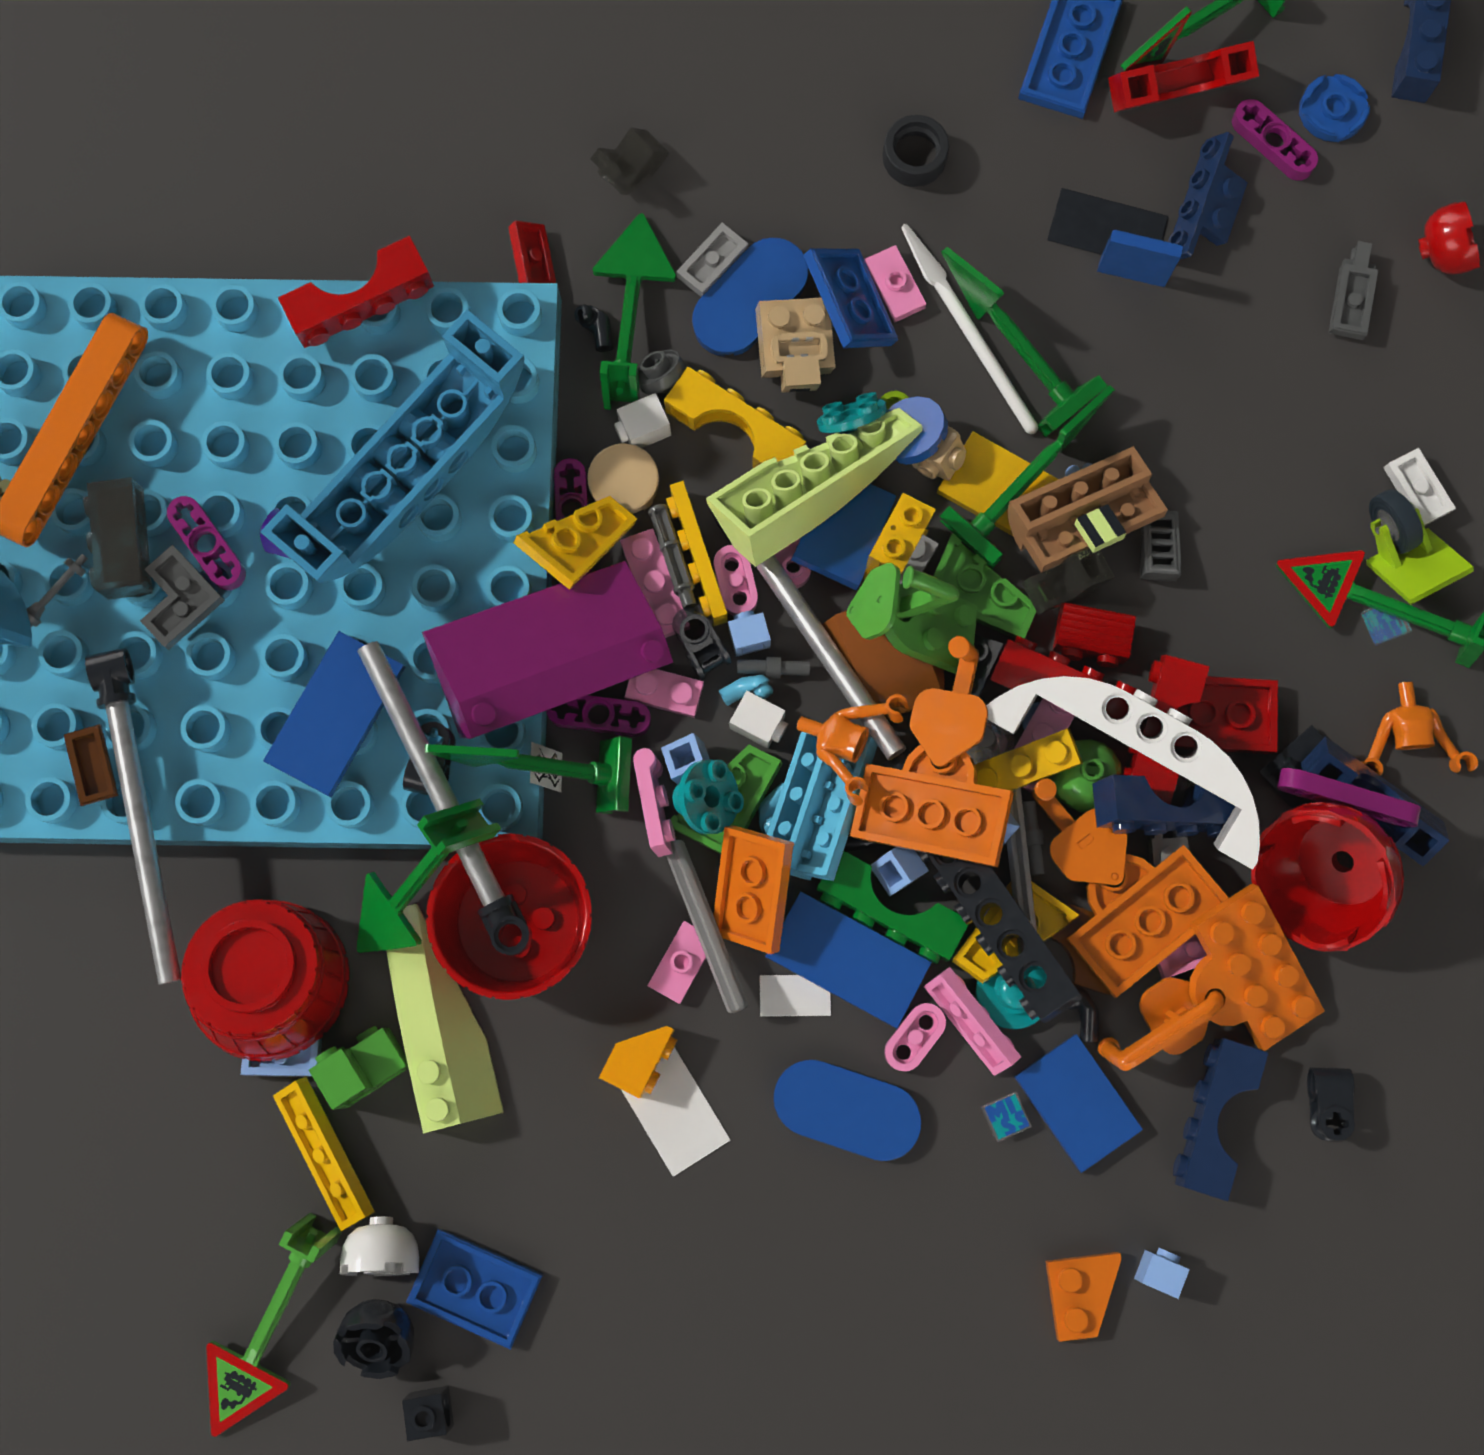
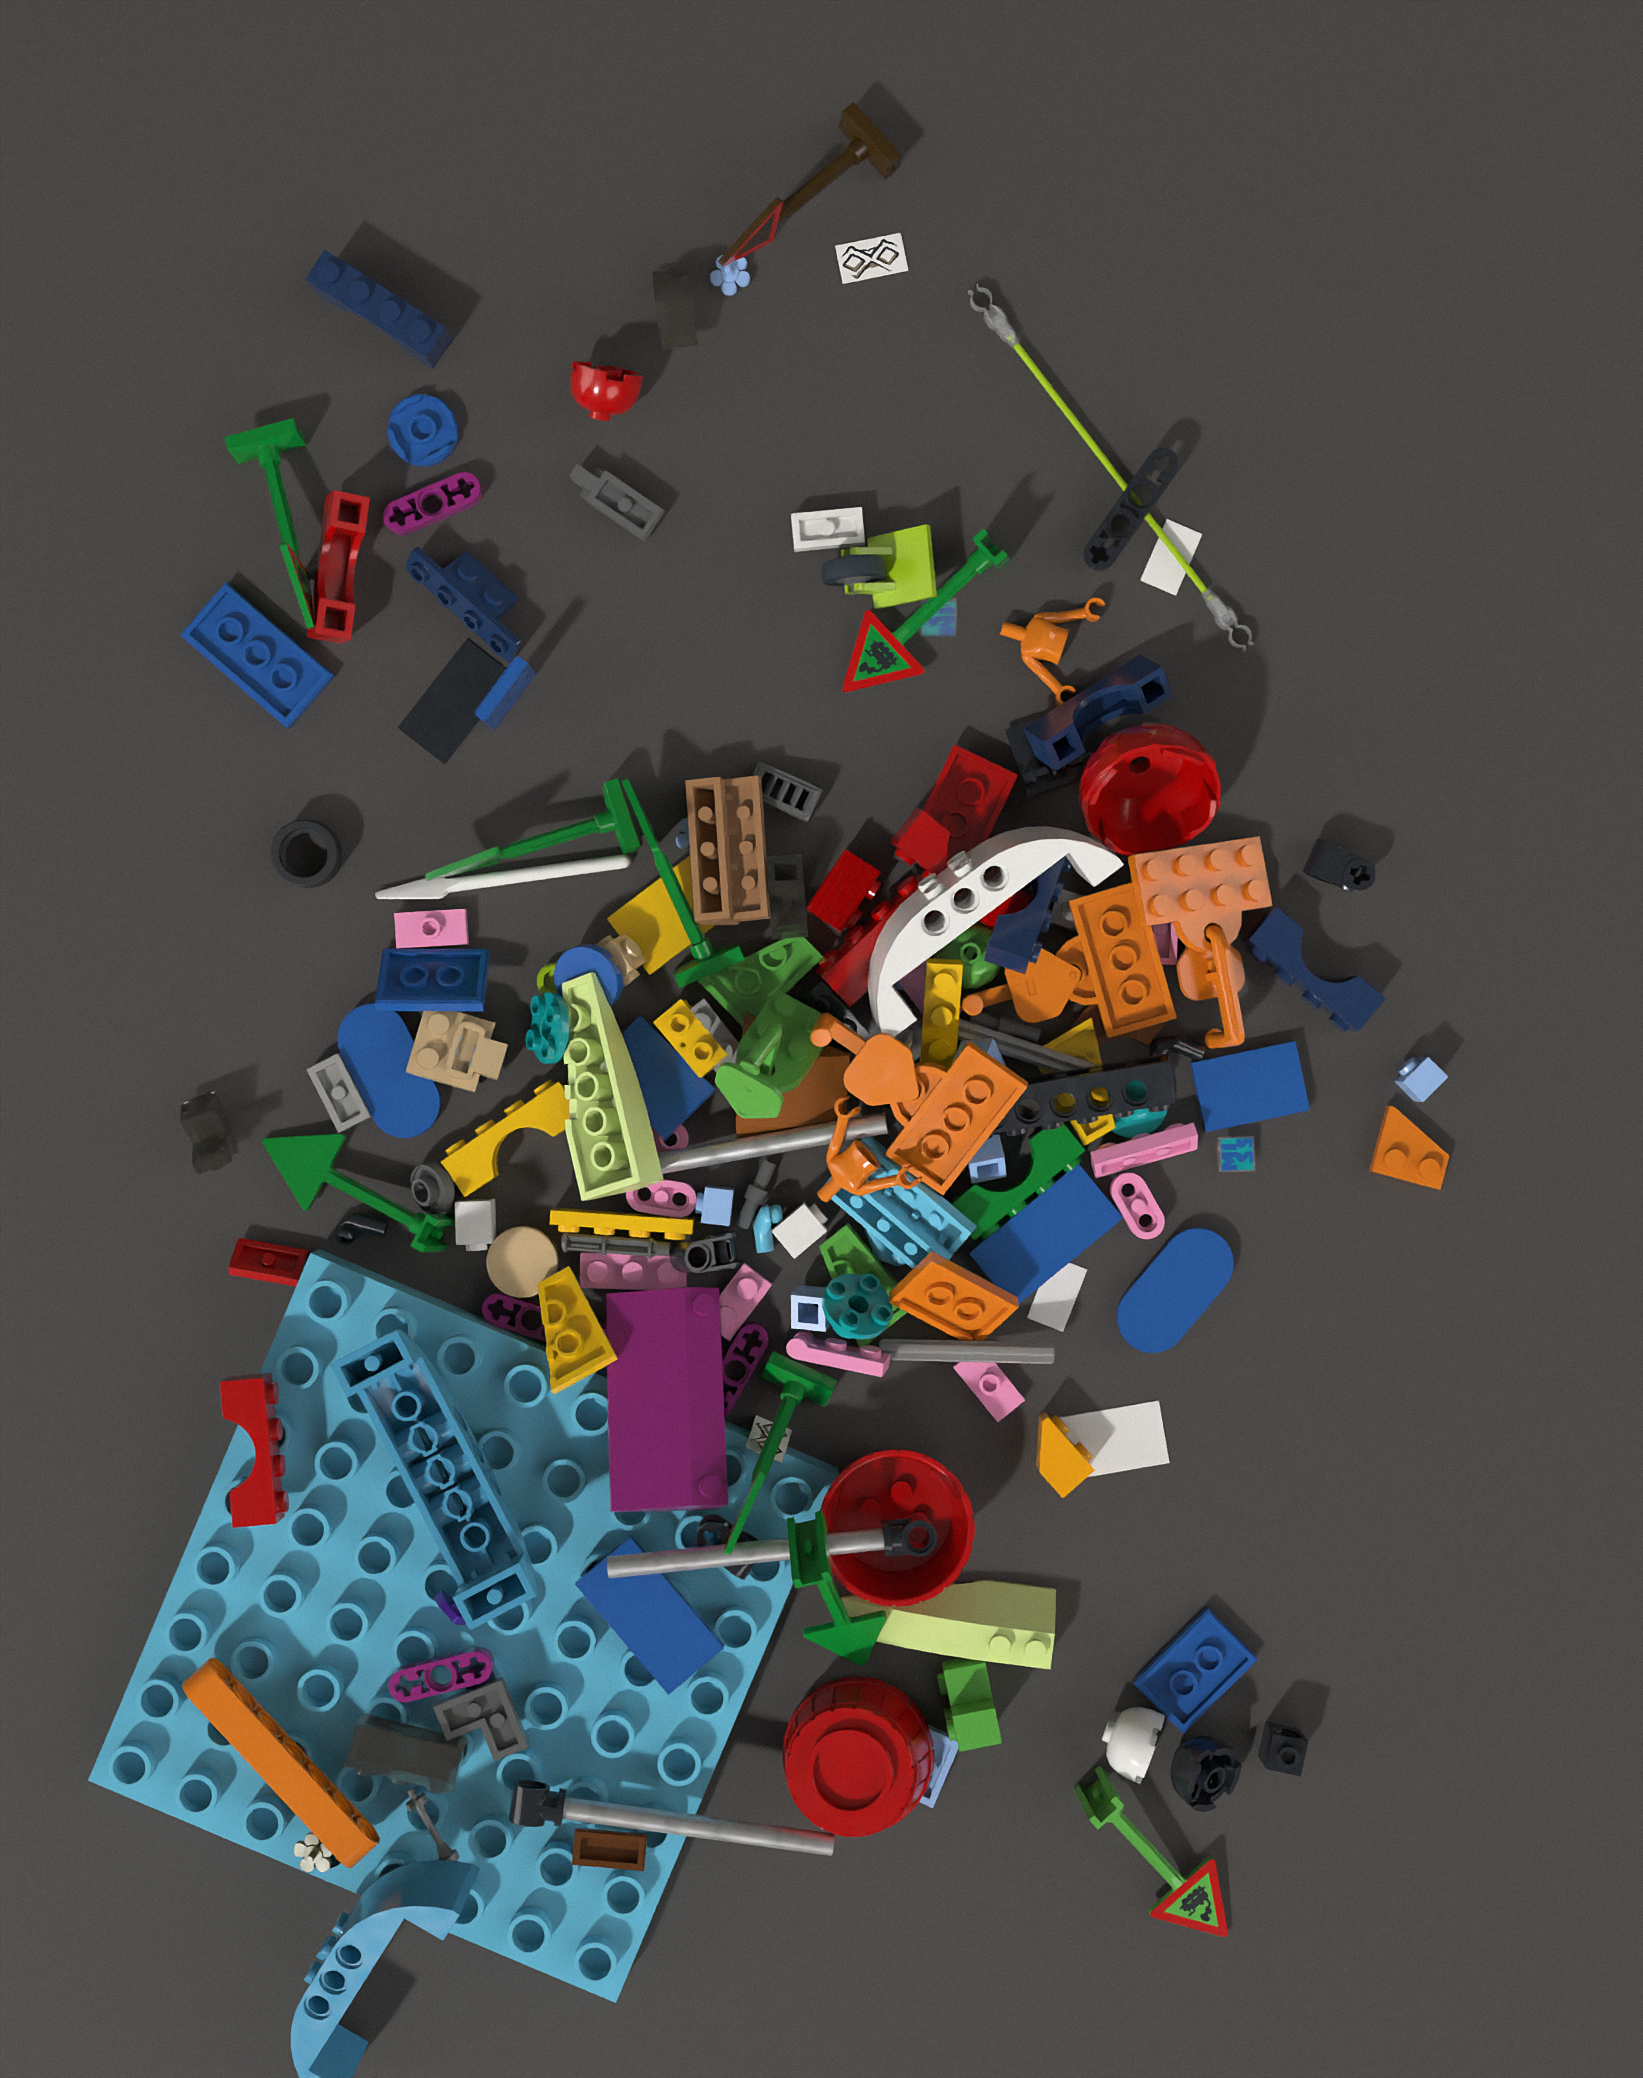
camera: 65 degrees left, 10 degrees up
(323, 1153) = (1029, 1759): yellow plate -> none
(1100, 528) = (753, 848): tile -> none
(1329, 790) = (1091, 742): magenta beam -> none

